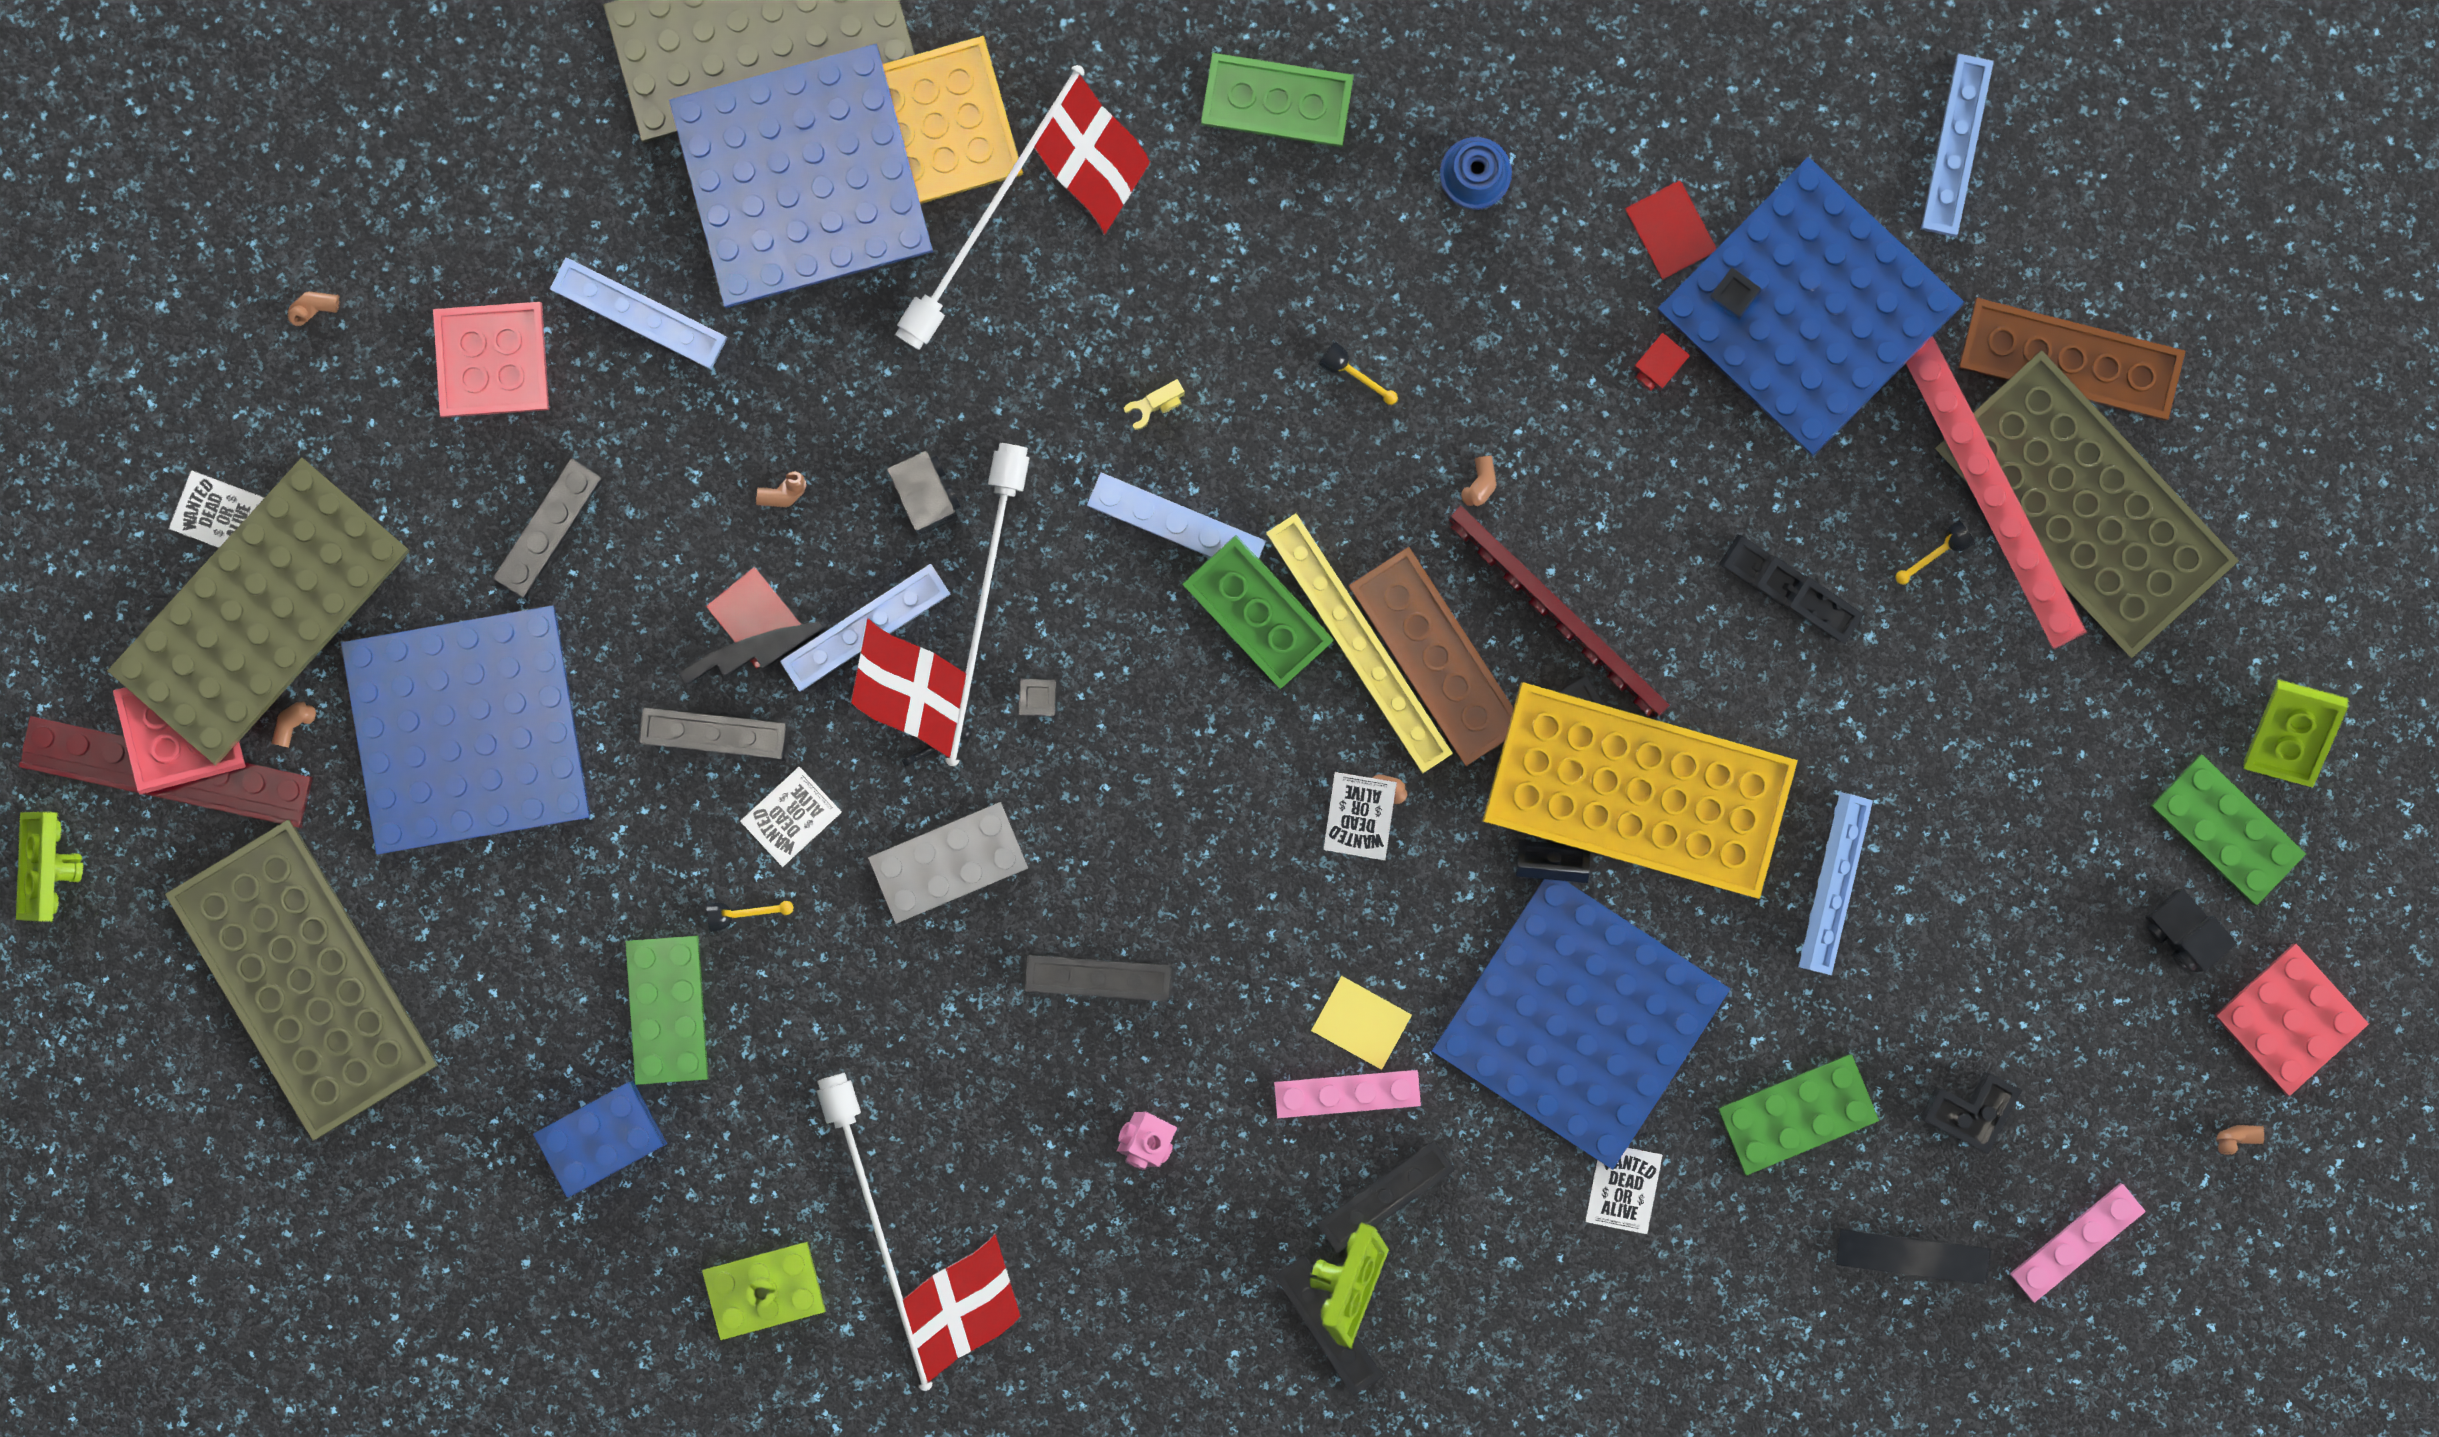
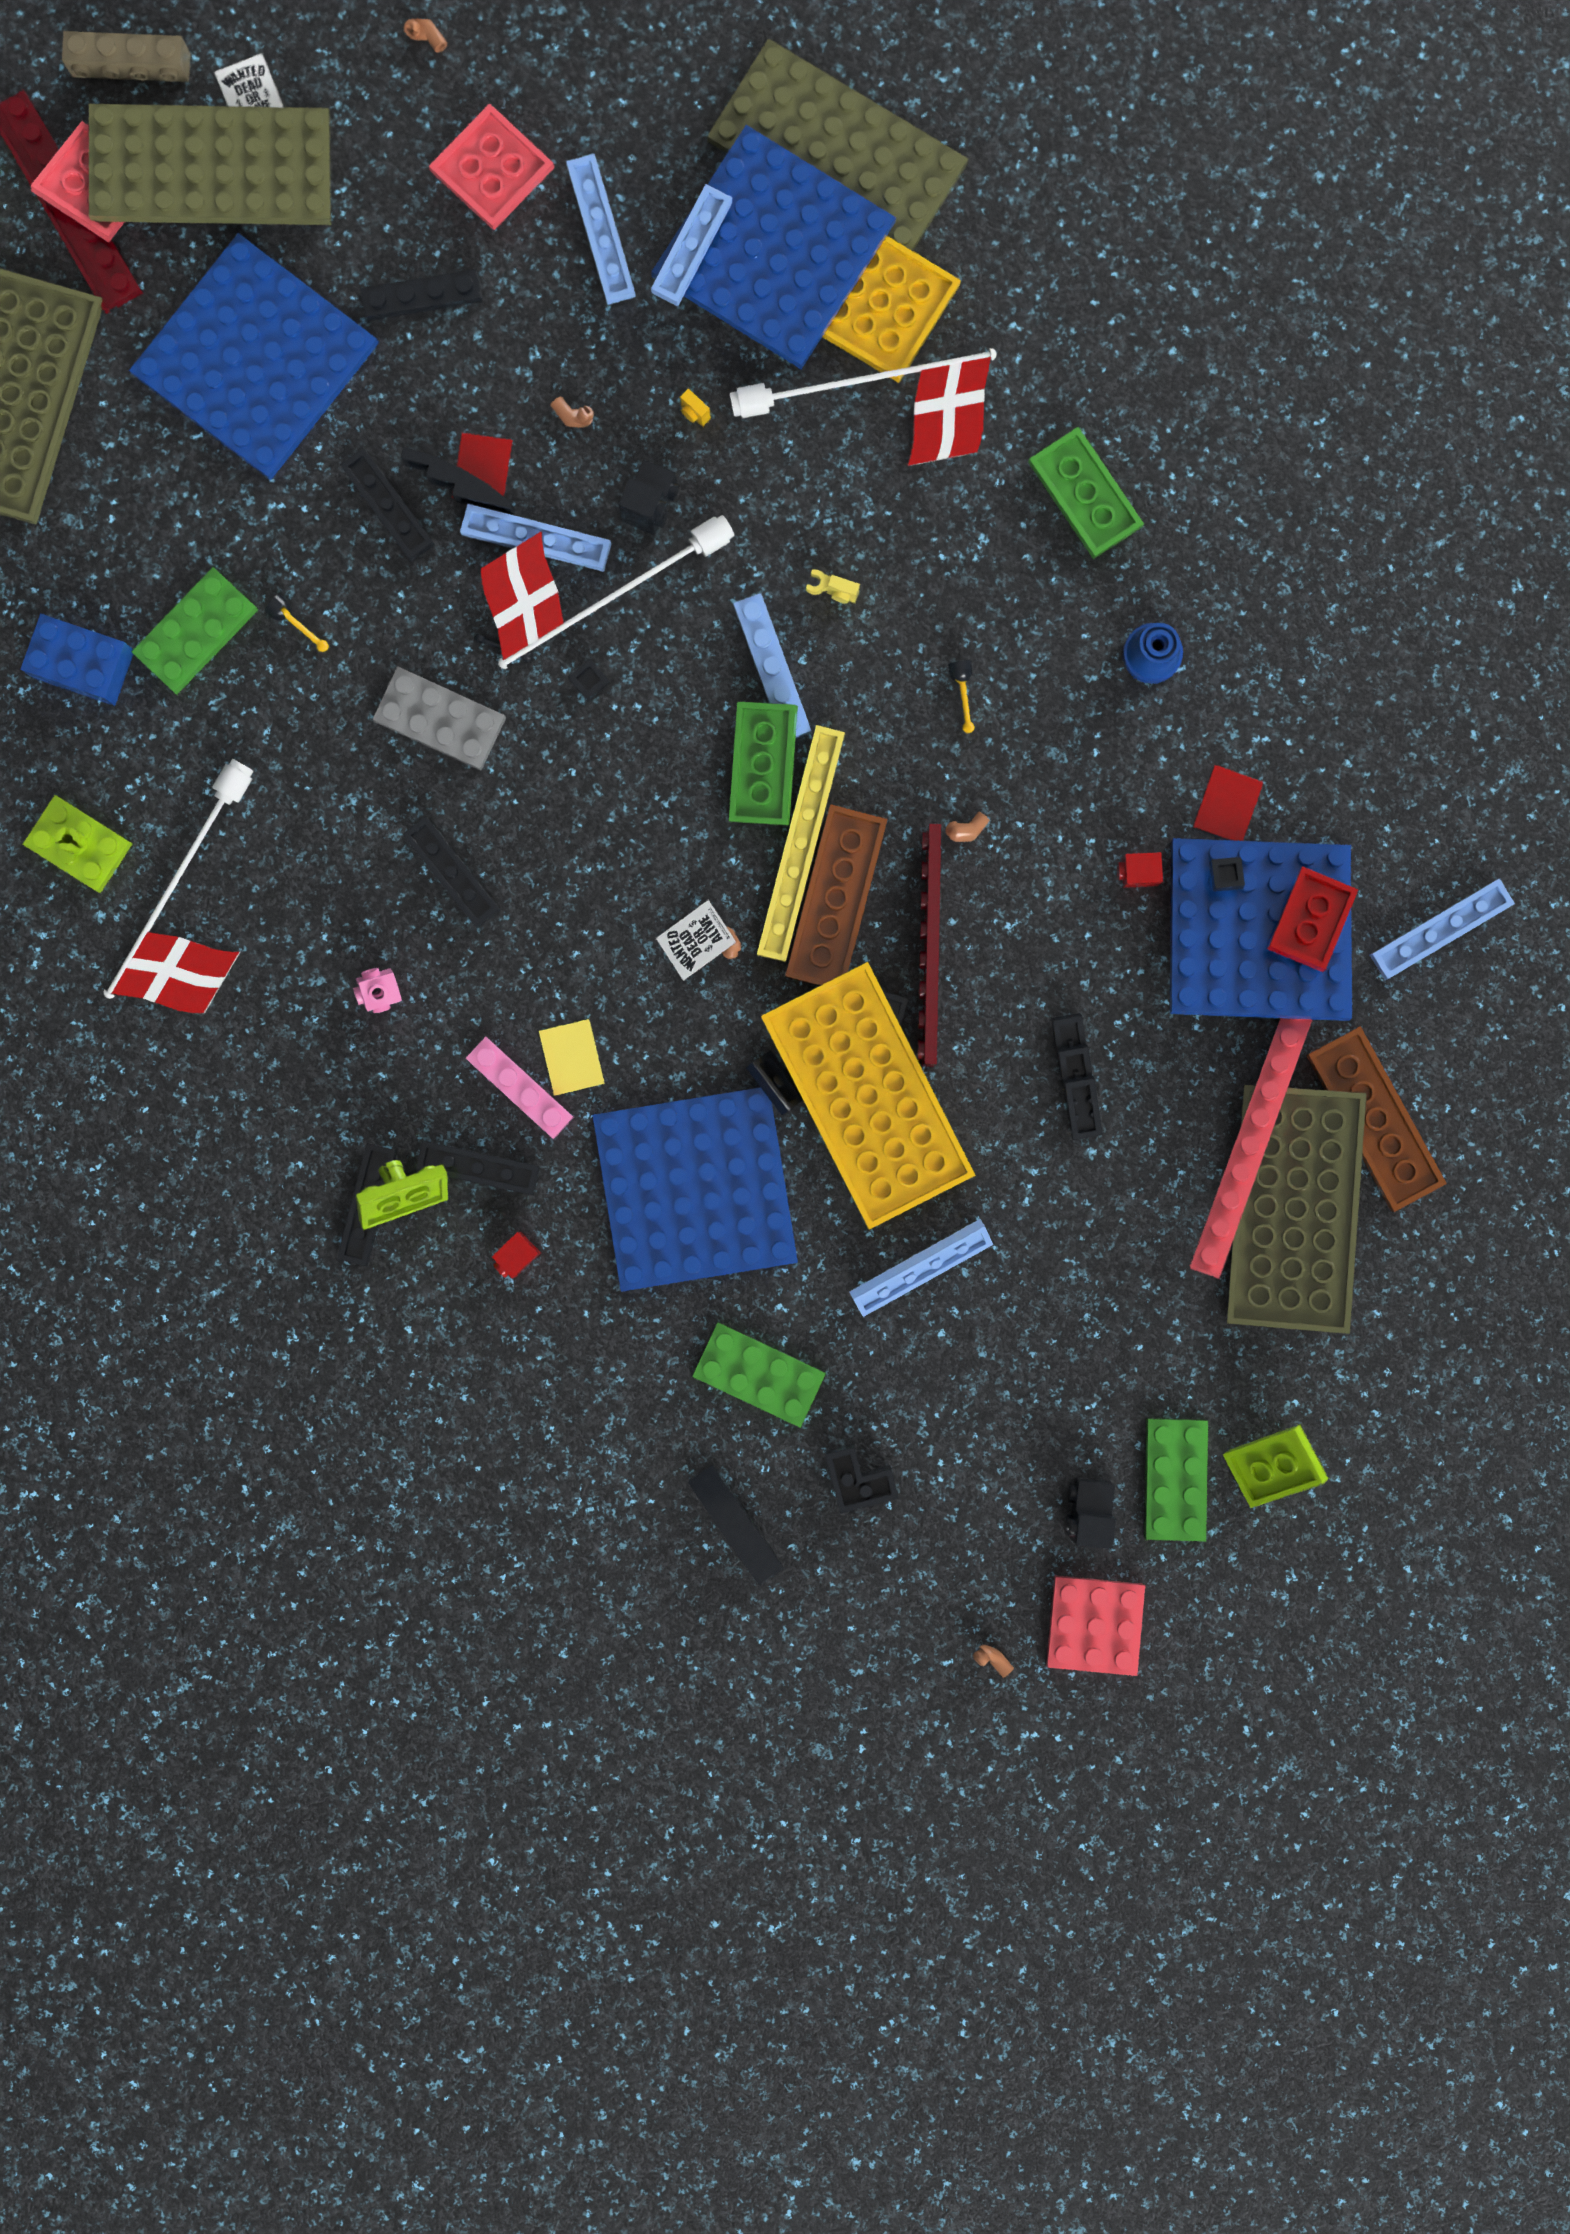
camera: 45 degrees right, 0 degrees up
(88, 596) = (126, 56): none -> dark tan brick
(290, 718) = (163, 245): nougat arm -> none
(739, 251) = (691, 245): none -> light blue plate
(790, 816) = (381, 599): white sticker -> none
(879, 379) = (694, 408): none -> yellow plate
(1495, 1234) = (515, 1256): none -> red brick
(1626, 1194) = (614, 1312): white sticker -> none
(1845, 255) = (1312, 919): none -> red plate
(1956, 539) = (1201, 1148): hinge -> none
(2077, 1242) = (837, 1618): bright pink plate -> none

